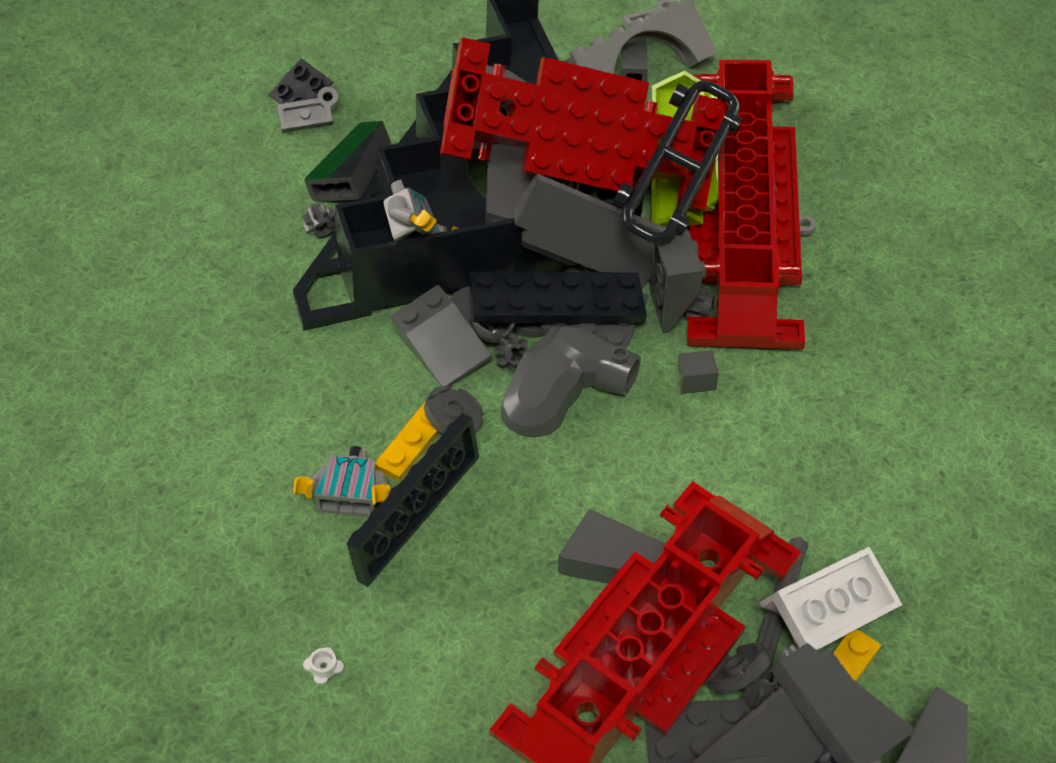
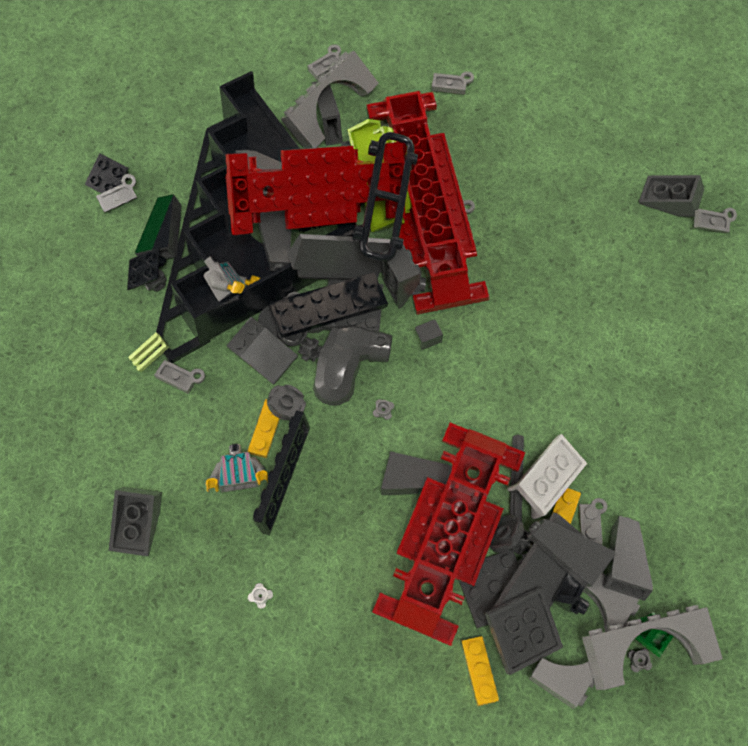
camera: 15 degrees left, 15 degrees up
(174, 514) = (134, 520): none -> dark grey slope
(277, 301) = (147, 349): none -> yellowish green tile
(309, 346) = (178, 376): none -> light grey hinge
(311, 199) = (144, 268): none -> black hinge
(598, 448) = (388, 408): none -> light grey plate
(824, 74) = (451, 83): none -> light grey hinge
(889, 684) = (591, 520): none -> light grey hinge

